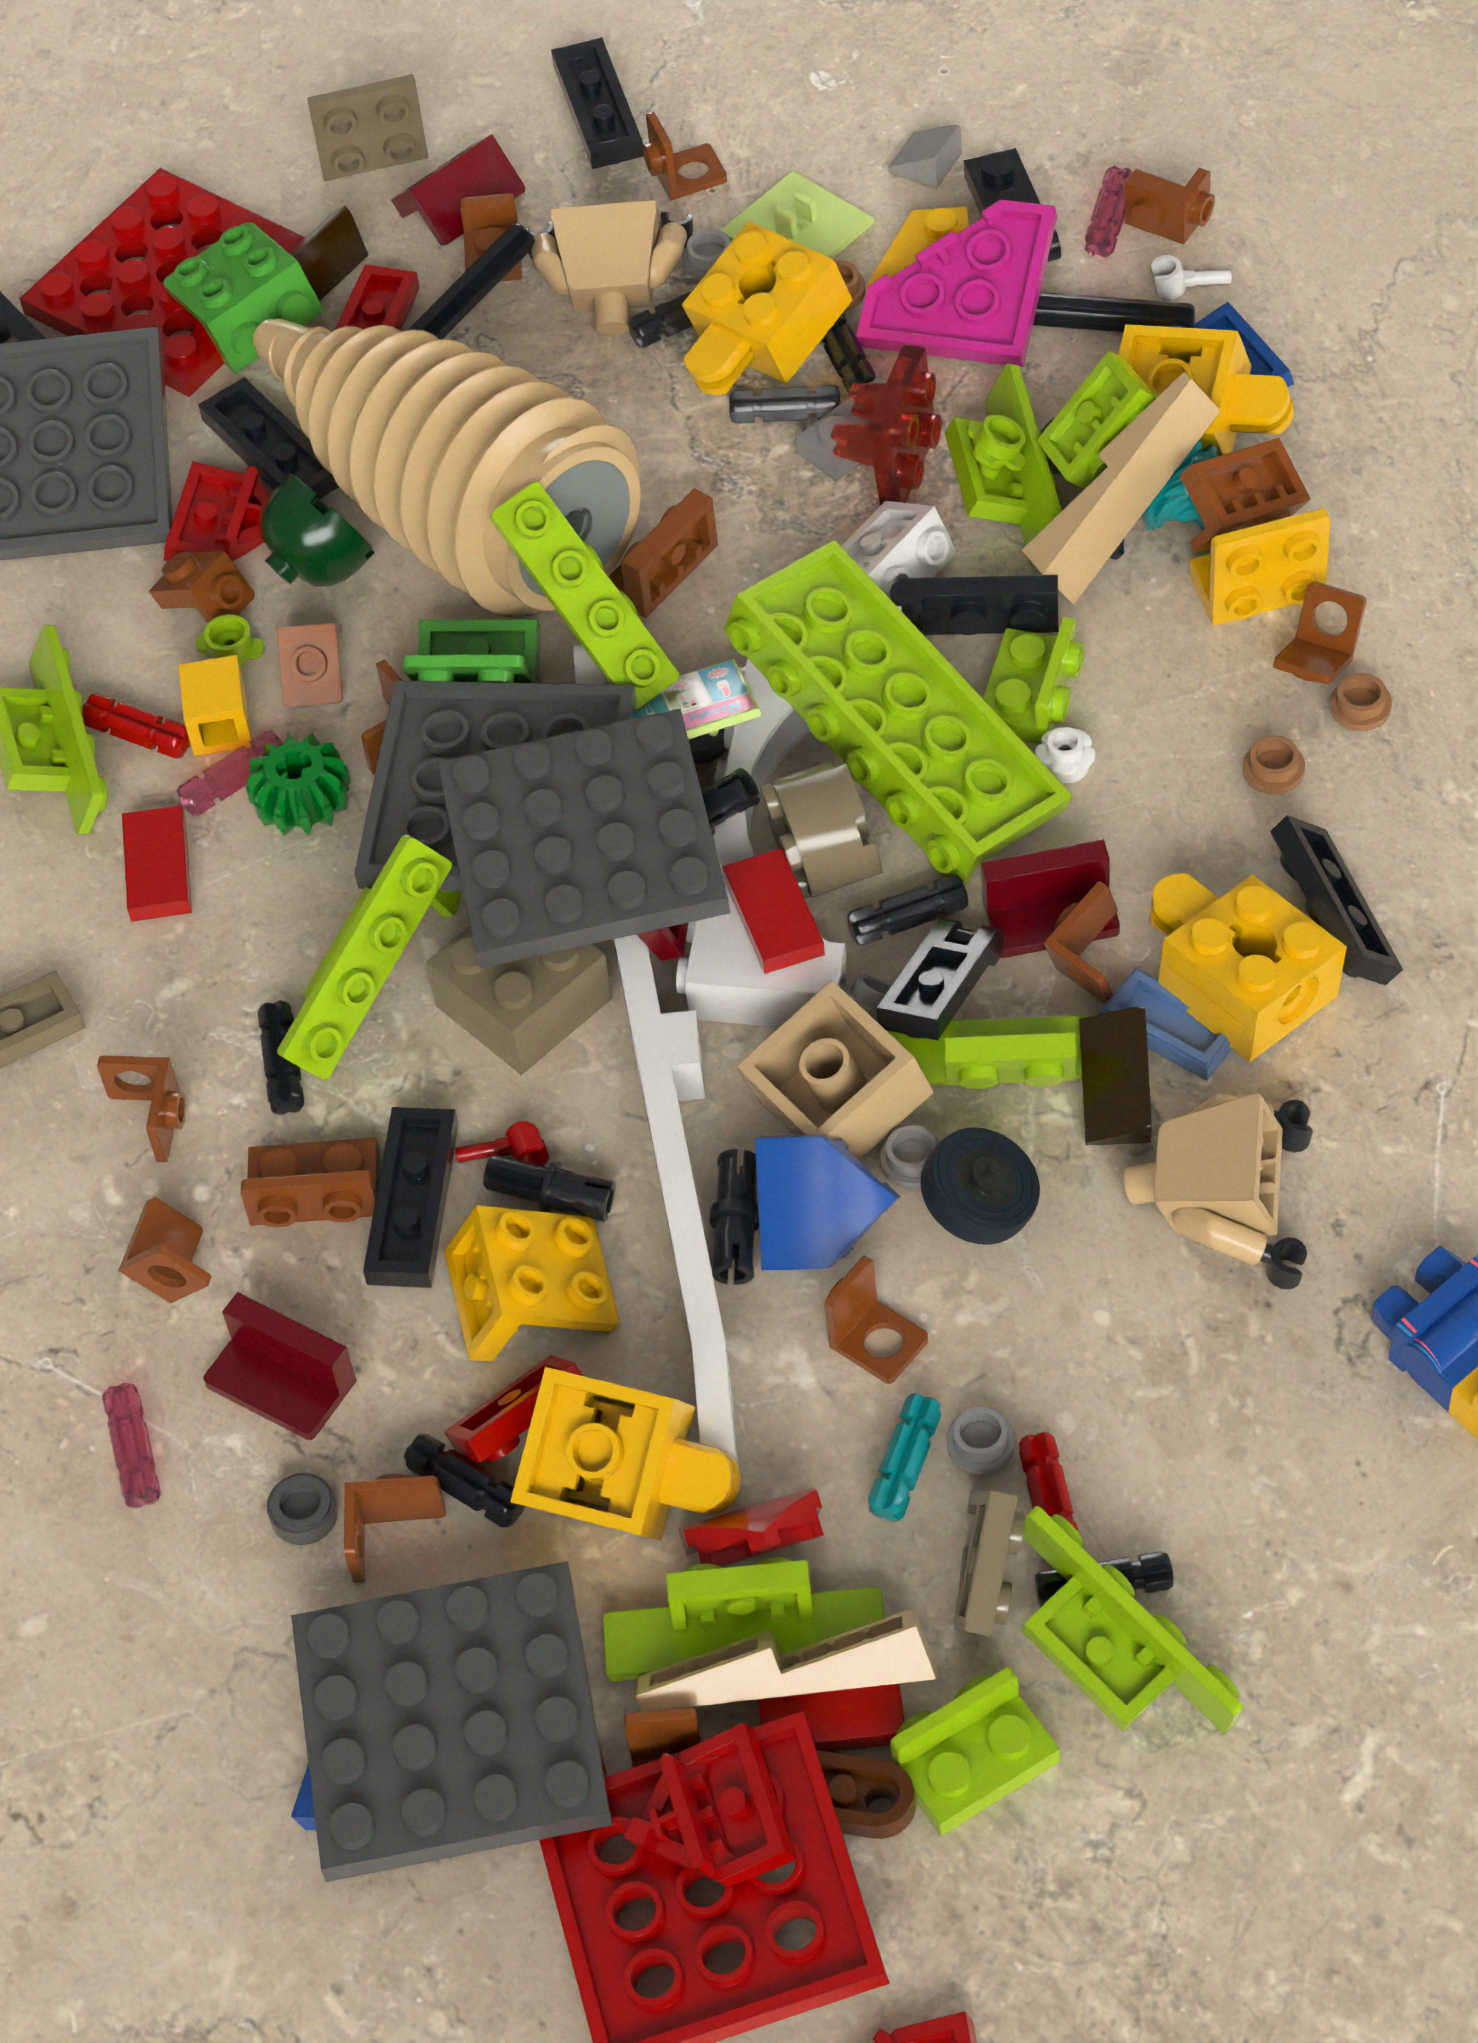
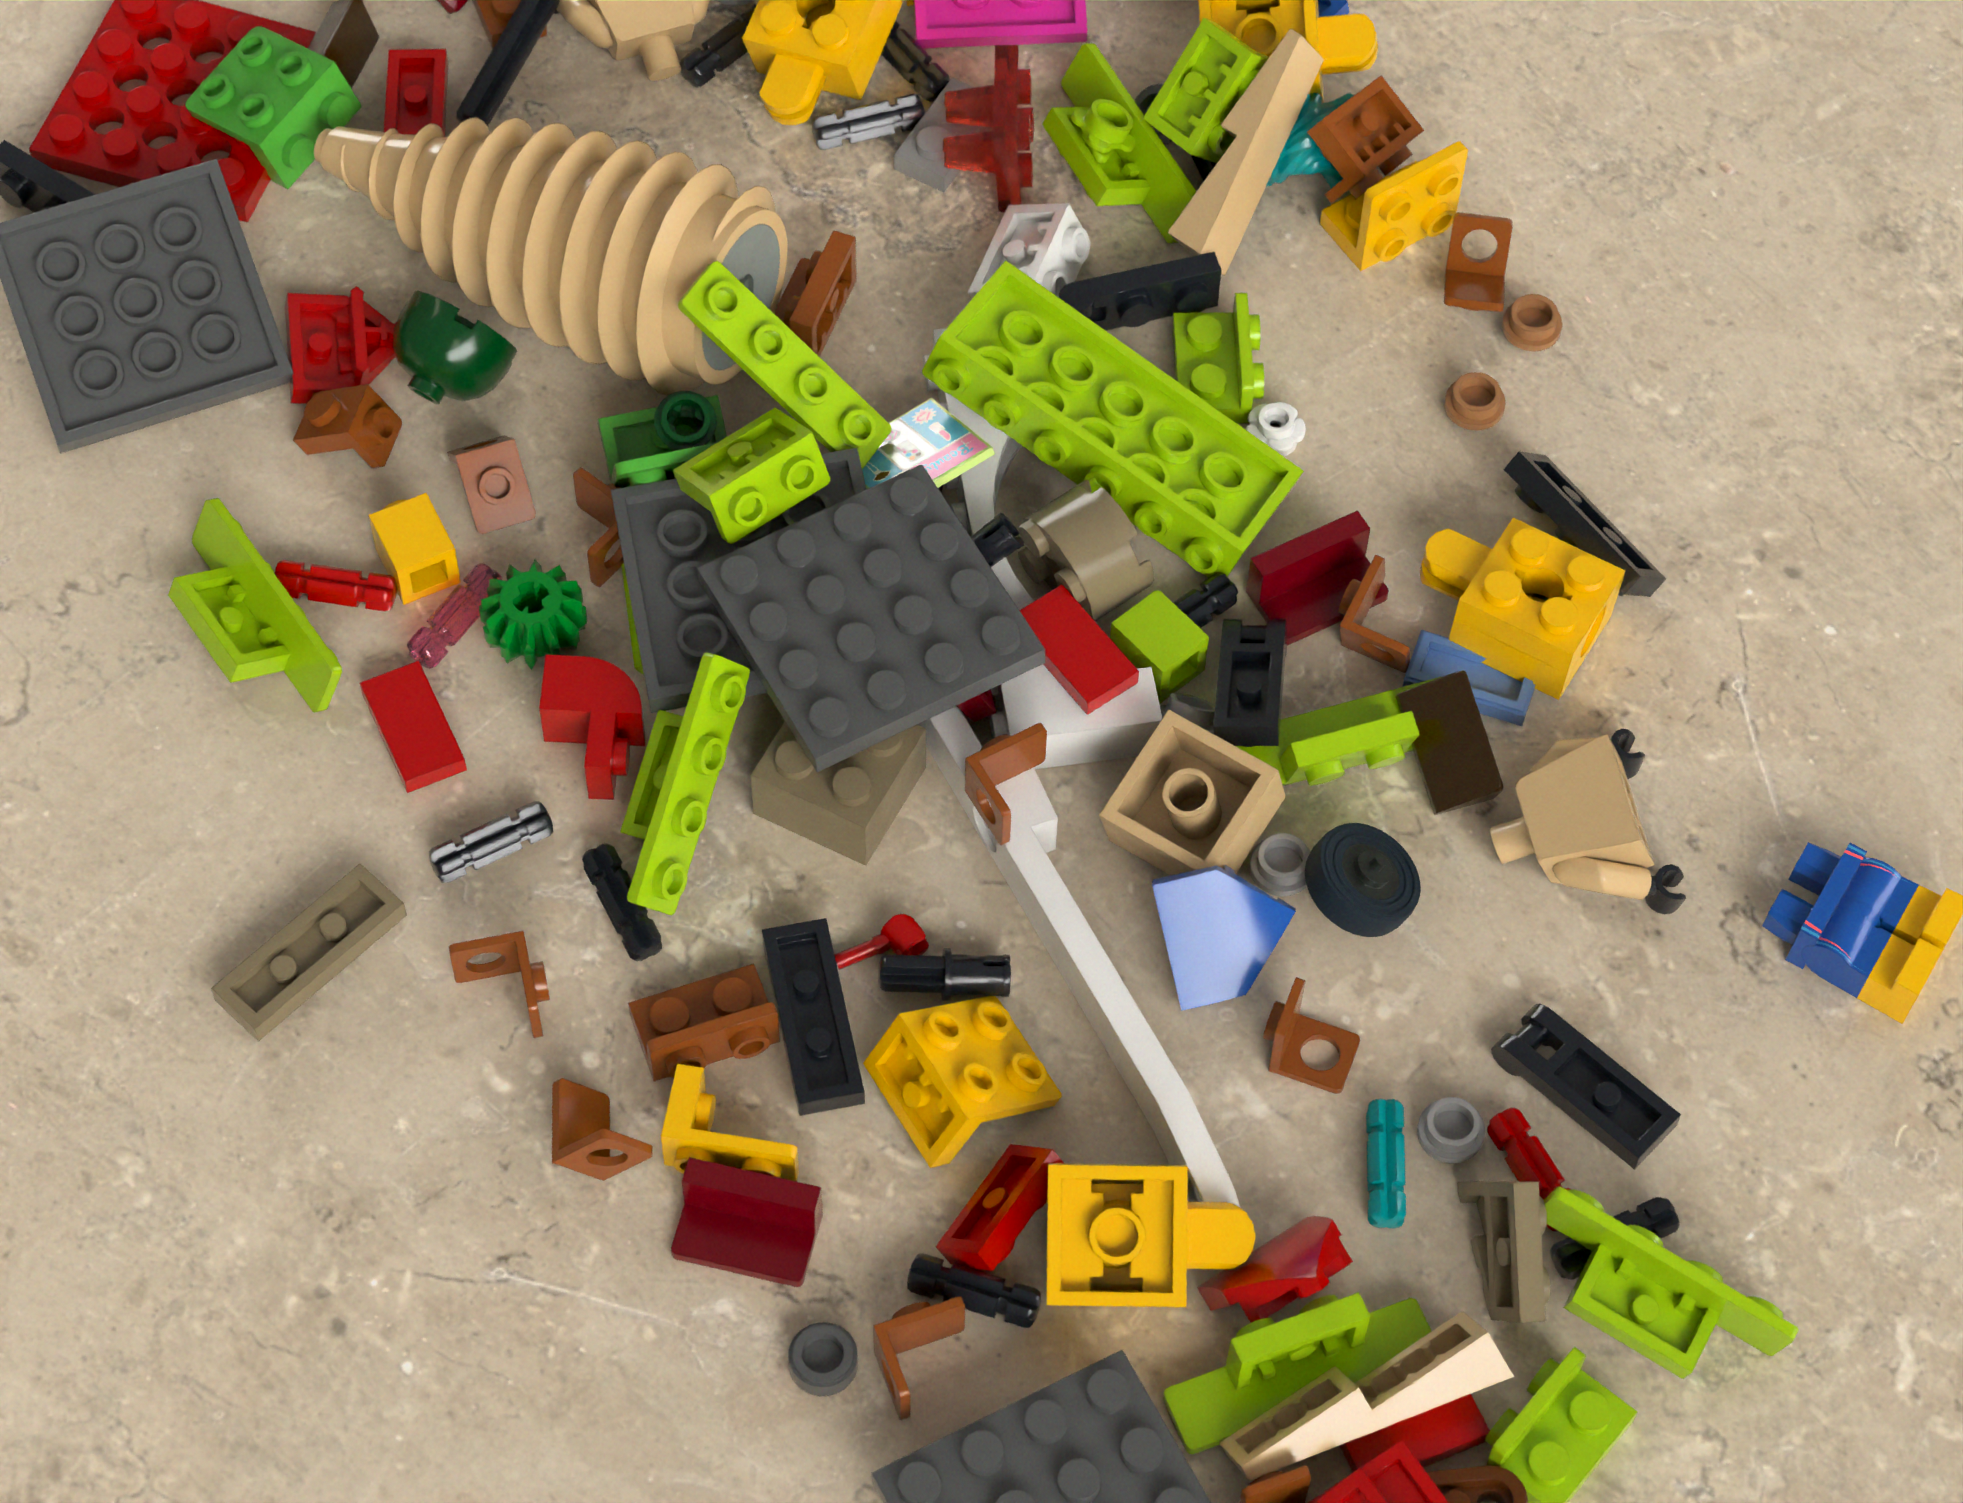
camera: 25 degrees left, 5 degrees up
(131, 1445) = (627, 1337): clear pink axle -> none
(184, 978) = (490, 841): none -> axle
(228, 637) = (395, 466): lime plate -> none
(259, 1263) = (688, 1133): none -> yellow bracket
(264, 437) = (355, 255): black plate -> none
(316, 878) = (595, 706): none -> red brick
(484, 630) = (686, 409): none -> dark green cone
(523, 690) = (755, 474): none -> lime bracket
(657, 997) = (995, 763): none -> dark orange bracket
(735, 1217) = (1138, 960): black pin -> none
(870, 926) = (1161, 638): none -> lime panel
(1132, 1431) = (1587, 1085): none -> black plate

